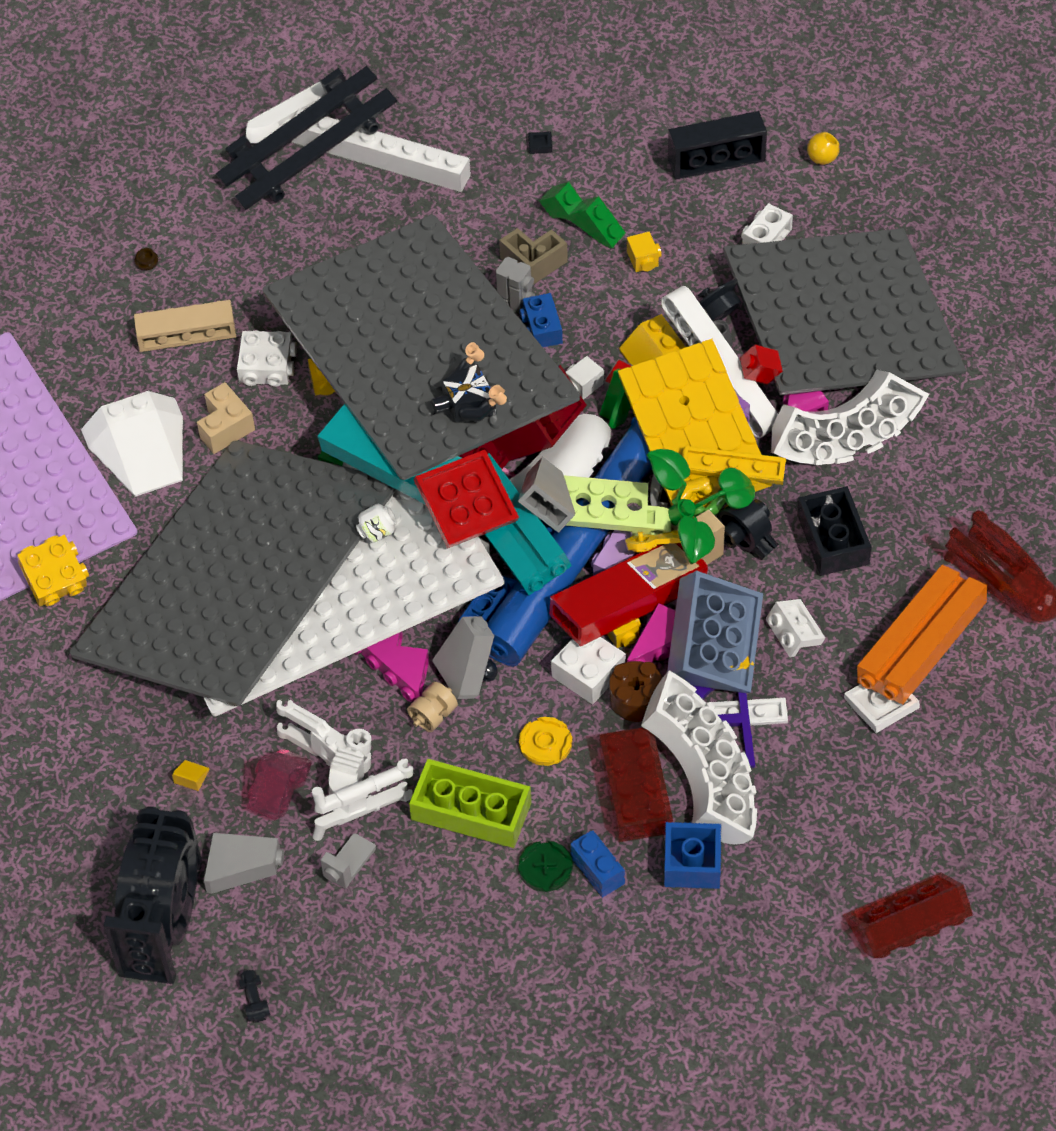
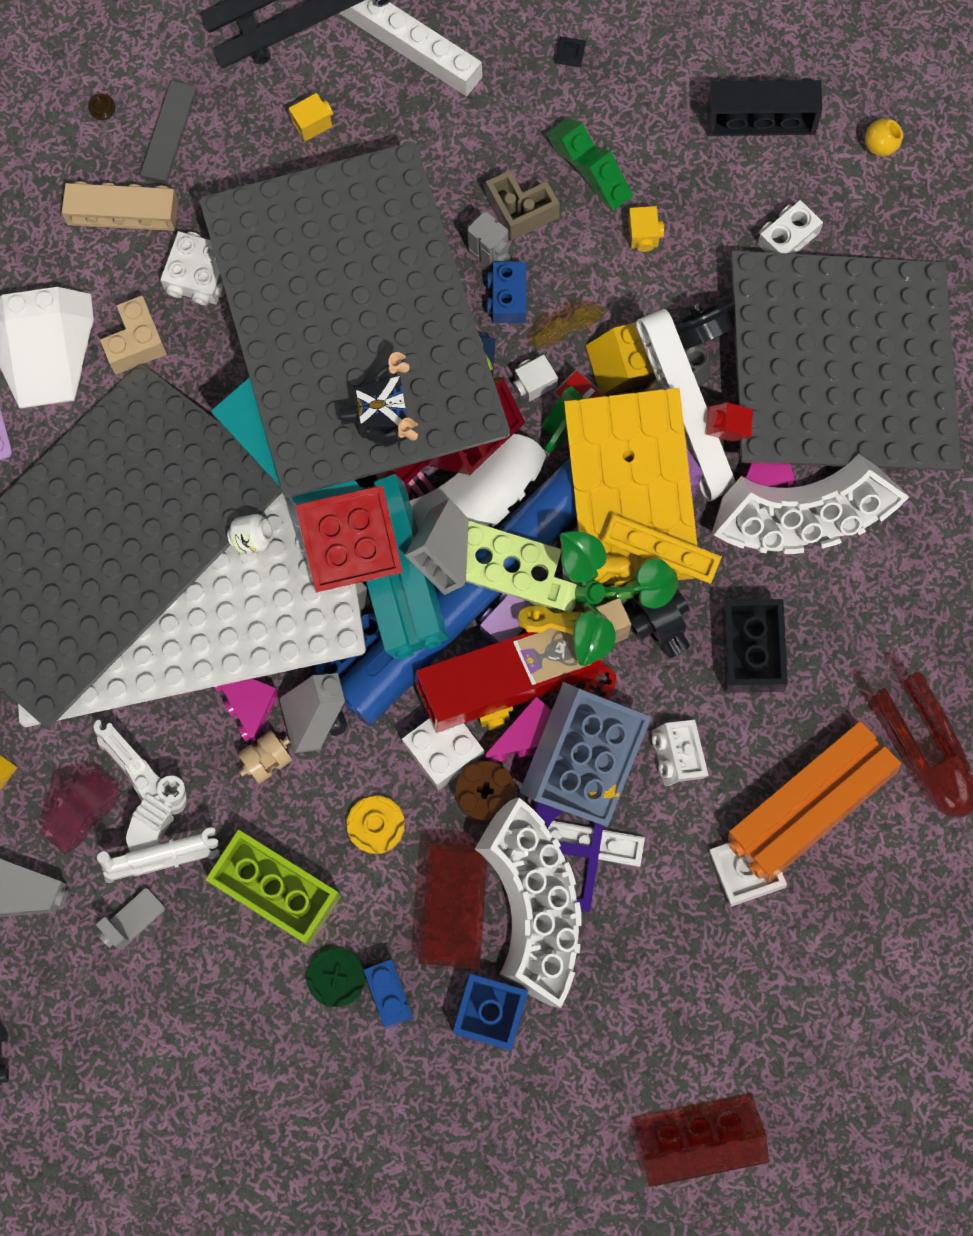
camera: 15 degrees right, 20 degrees up
(210, 265) = (168, 132): none -> dark grey tile
(333, 228) = (311, 116): none -> yellow brick
(593, 335) = (581, 320): none -> clear yellow tile

